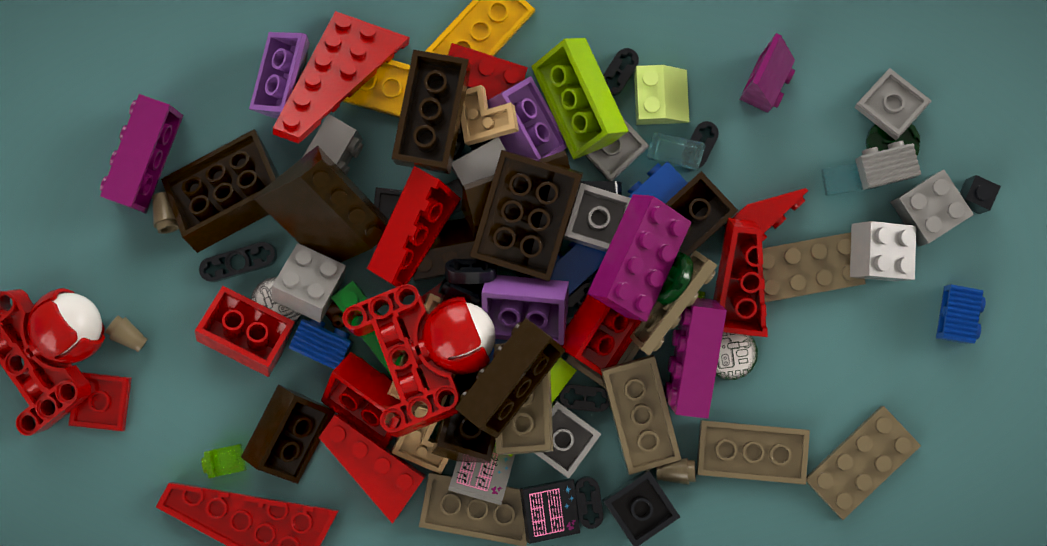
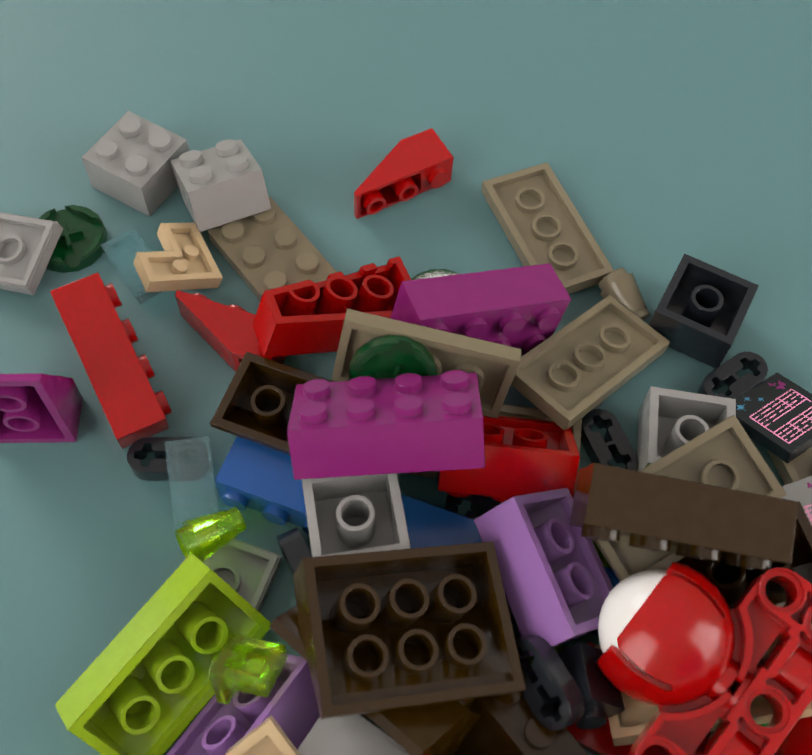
camera: 120 degrees left, 25 degrees down
(553, 133) = (246, 667): none -> clear neon green bracket
(624, 75) = (92, 614): black beam -> none
(638, 147) = (209, 533): none -> clear neon green cone
(661, 95) = (112, 549): yellowish green slope -> none
(776, 134) = (110, 359): none -> red wedge
(830, 207) = (182, 264): none -> tan plate
(844, 387) = (408, 170): none -> red slope
(862, 462) = (484, 127): dark tan plate -> none
(887, 166) = (102, 219): light grey brick -> none
(960, 314) = (258, 96): blue brick -> none
(979, 193) = (95, 118): black brick -> none

